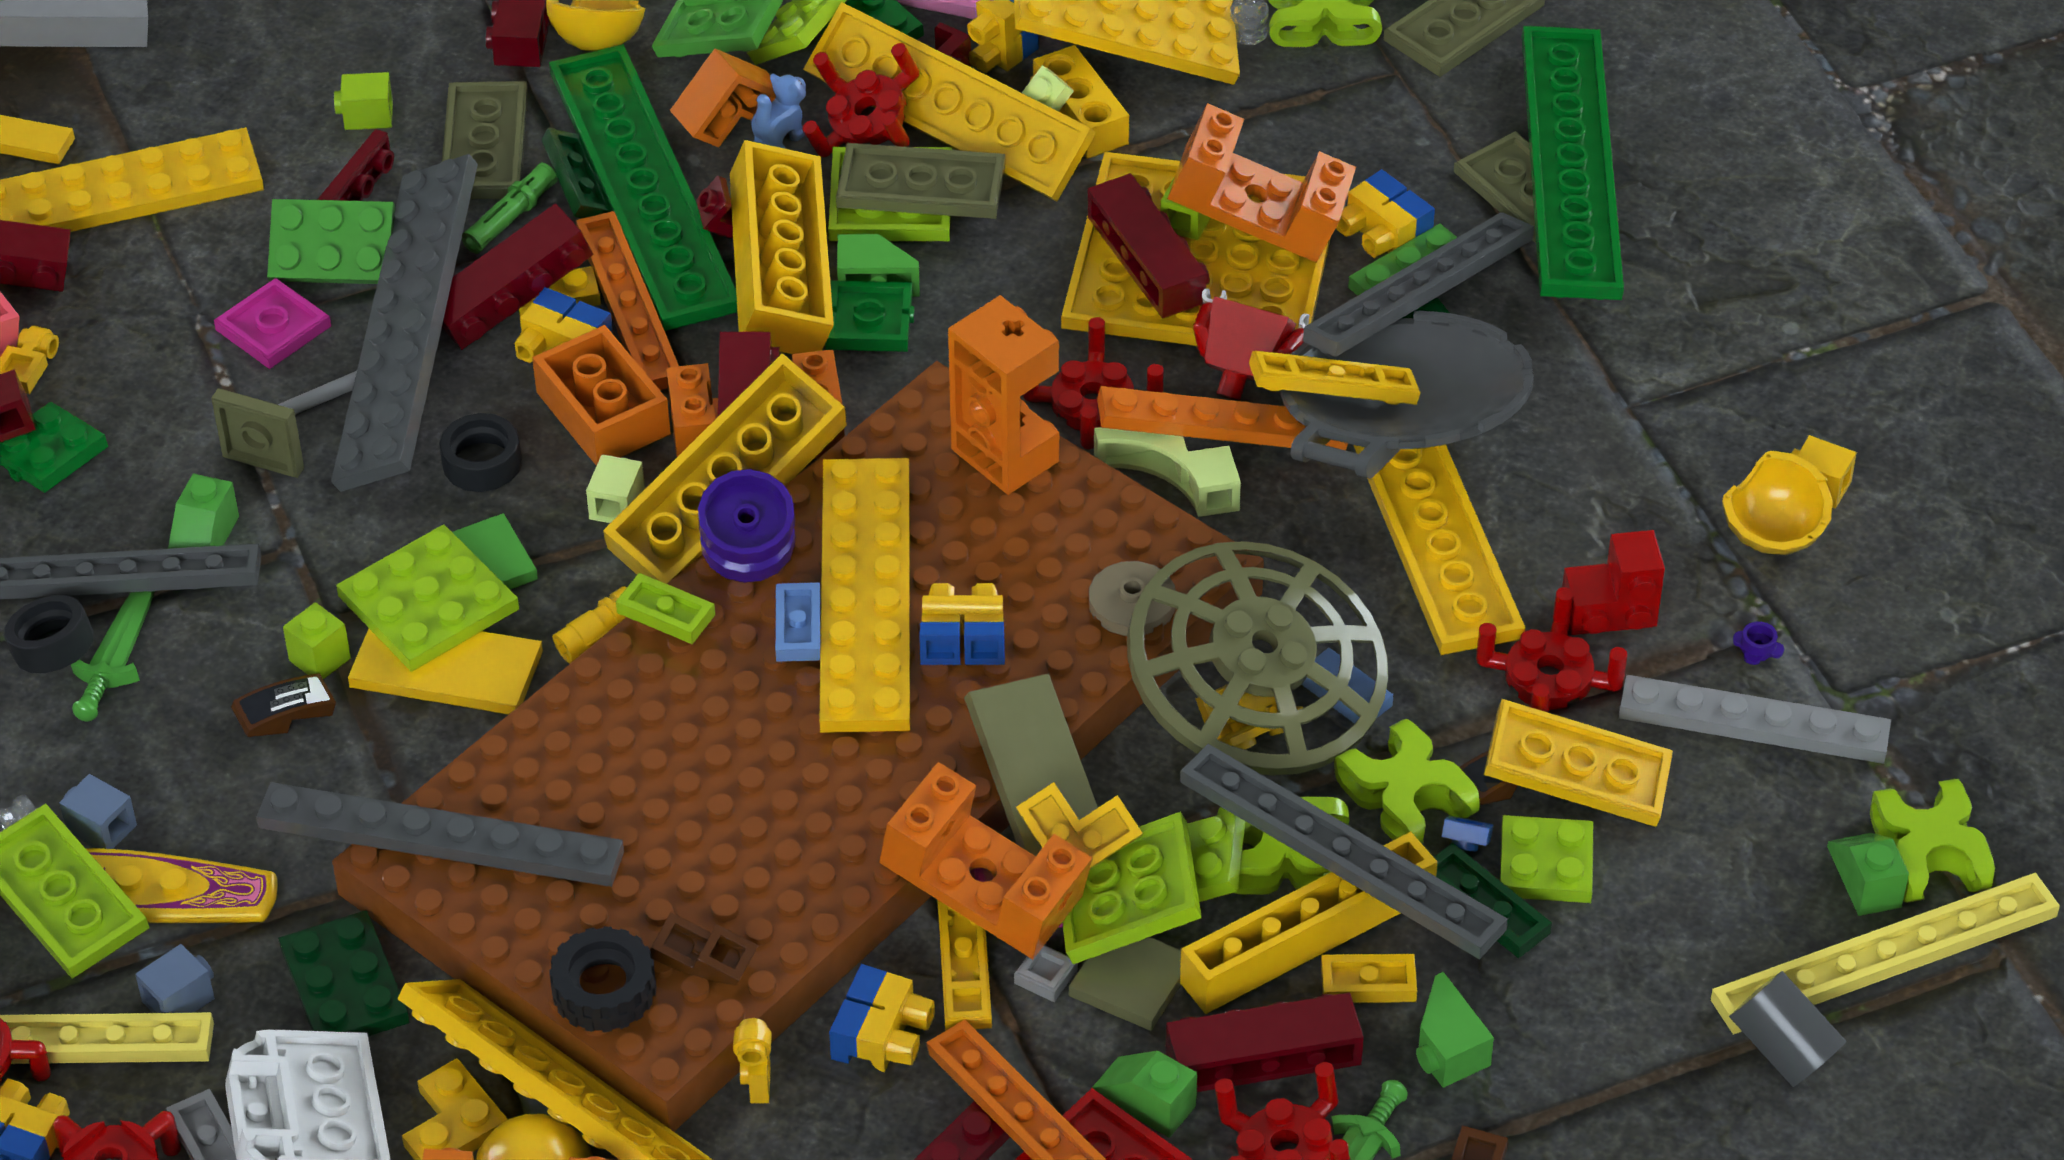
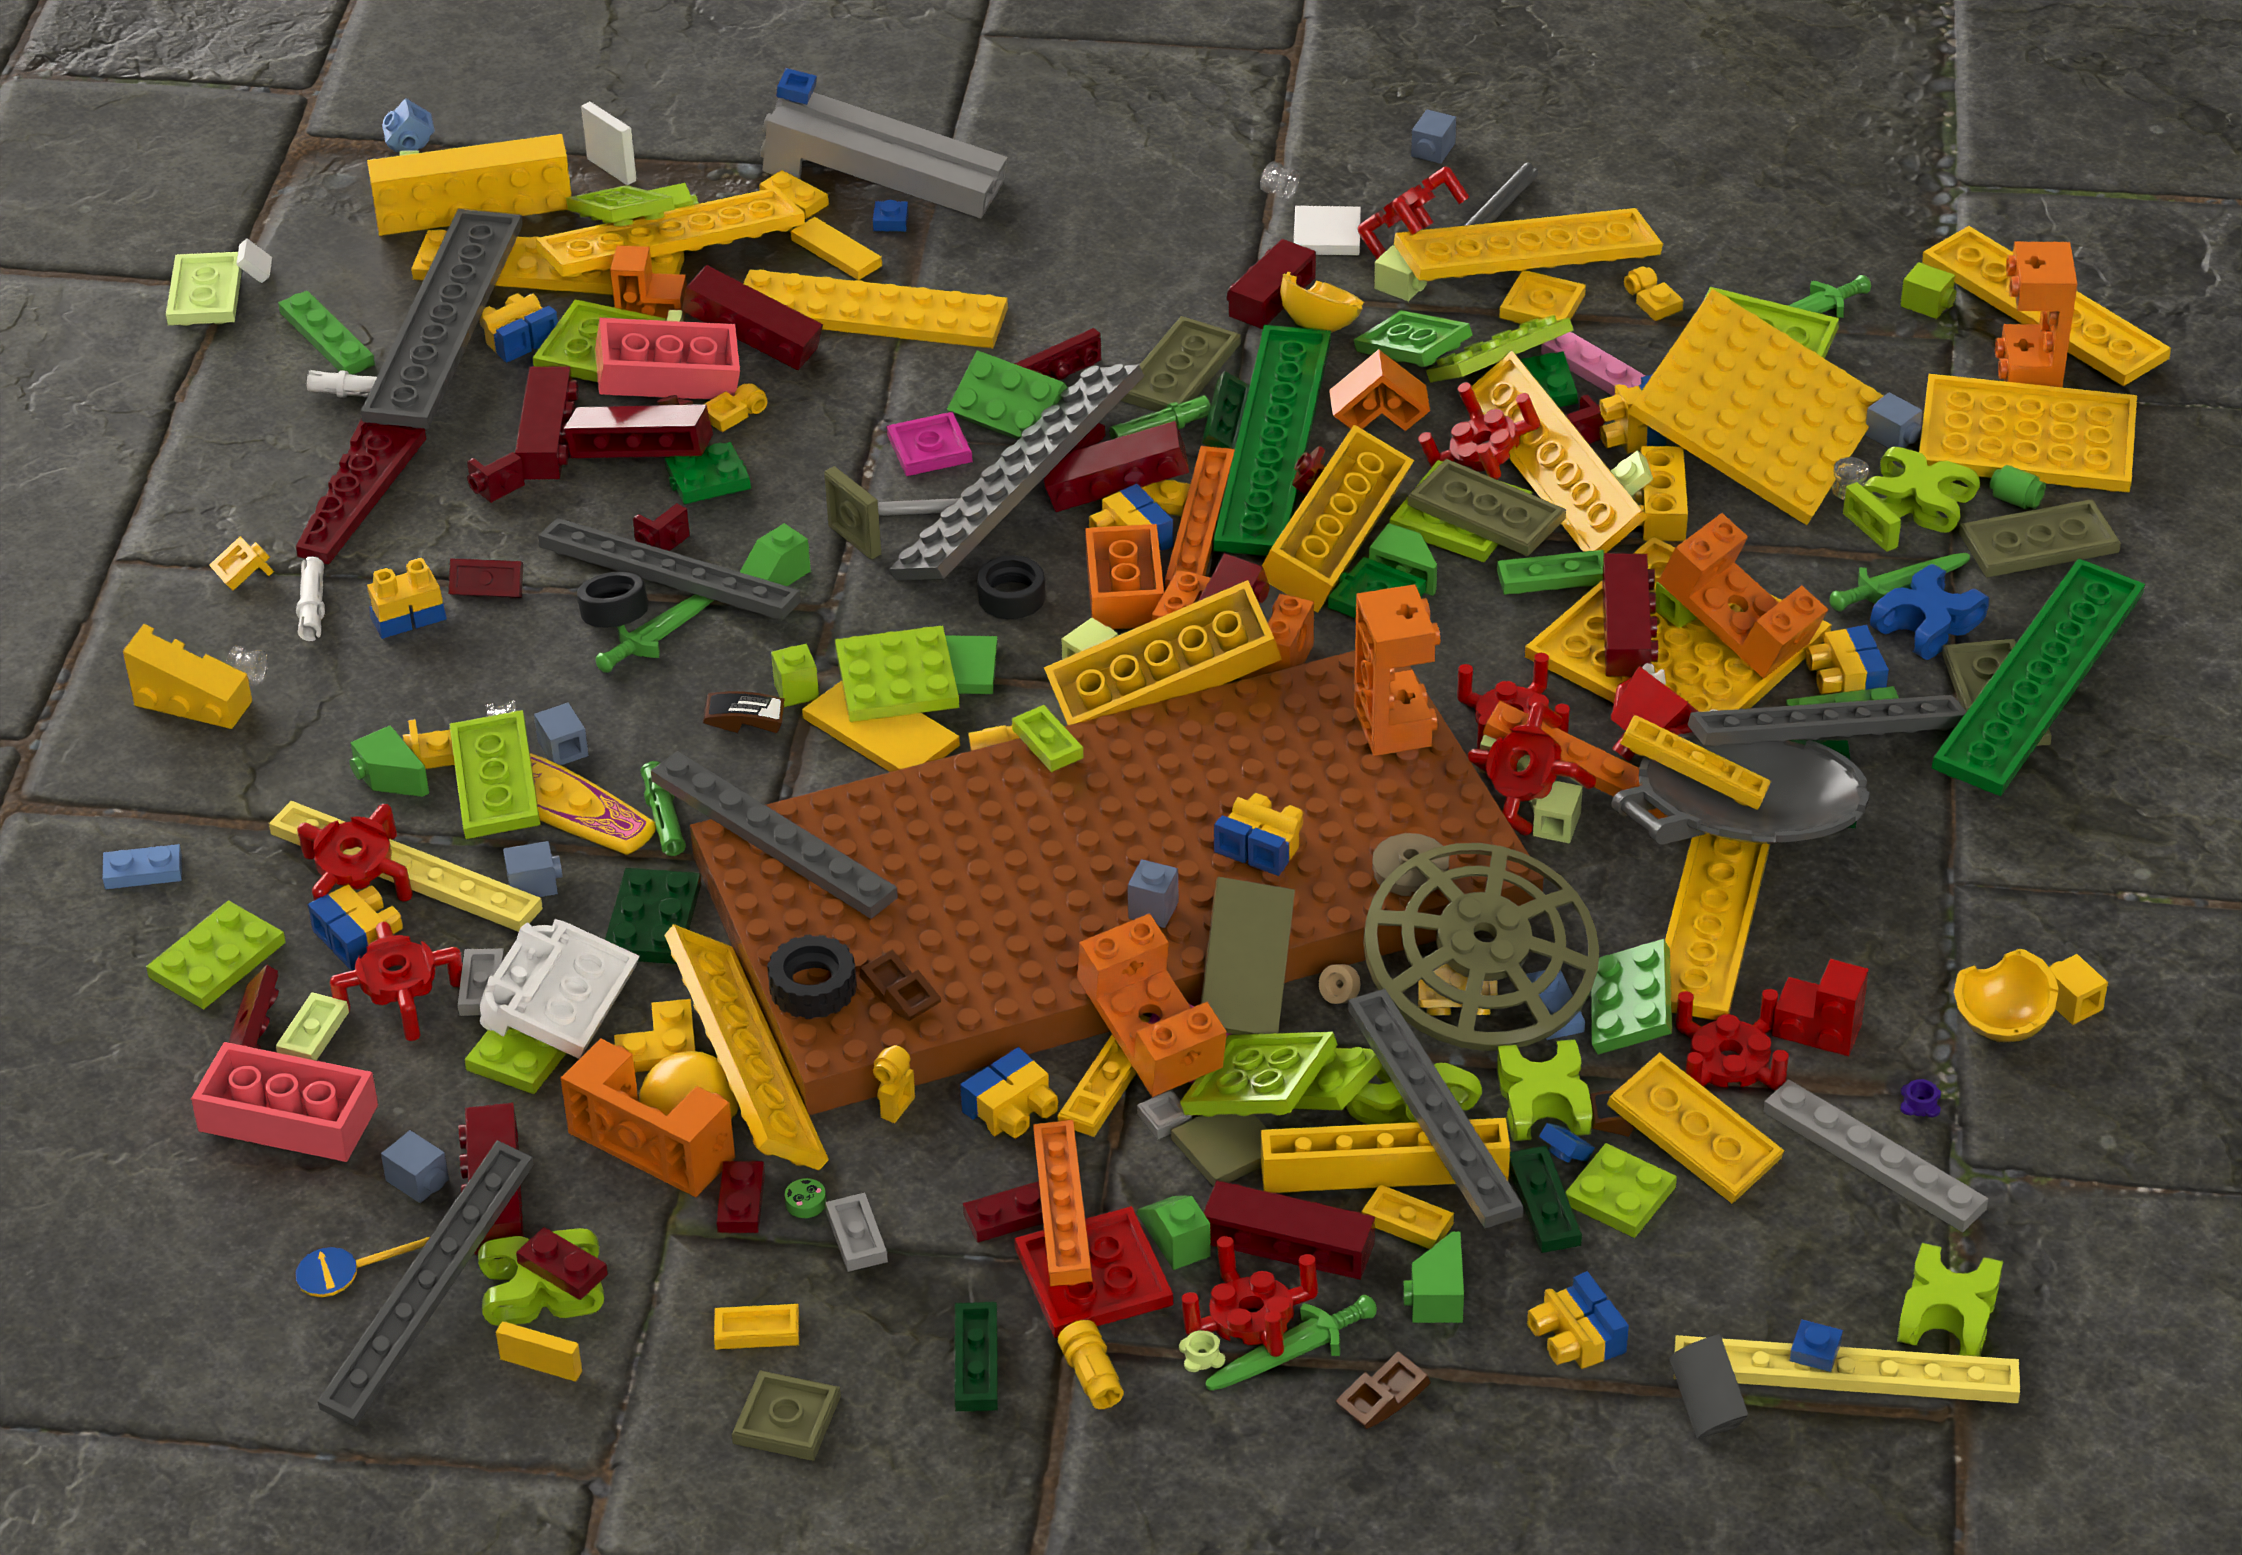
camera: 30 degrees right, 5 degrees down
(46, 78) = (890, 215): none -> blue plate
(50, 535) = (665, 531): none -> dark red bracket
(271, 852) = (663, 813): none -> bright green pin
(365, 101) = (1107, 308): lime brick -> none
(746, 525) = (1143, 698): dark purple wheel -> none
(781, 115) = (1412, 422): medium blue animal -> none
(798, 622) = (1138, 784): medium blue plate -> none
(865, 596) = (1208, 778): yellow plate -> none
(902, 736) = (1153, 891): none -> sand blue brick
(1029, 226) = (1550, 572): none -> bright green plate
(1096, 834) = (1247, 1024): yellow plate -> none
(1122, 761) = (1339, 983): none -> tan tile
(1194, 449) = (1542, 771): none -> red plate
(1298, 53) = (1872, 516): none -> lime plate
(1355, 121) = (1880, 585): none -> bright green sword
(1420, 132) = (1929, 611): none -> blue piece
(1427, 651) = (1631, 997): none -> bright green plate
(1613, 1015) = (1584, 1324): none -> yellow hips
(1852, 941) = (1816, 1345): none -> blue plate
(1870, 871) = (1878, 1306): bright green slope -> none

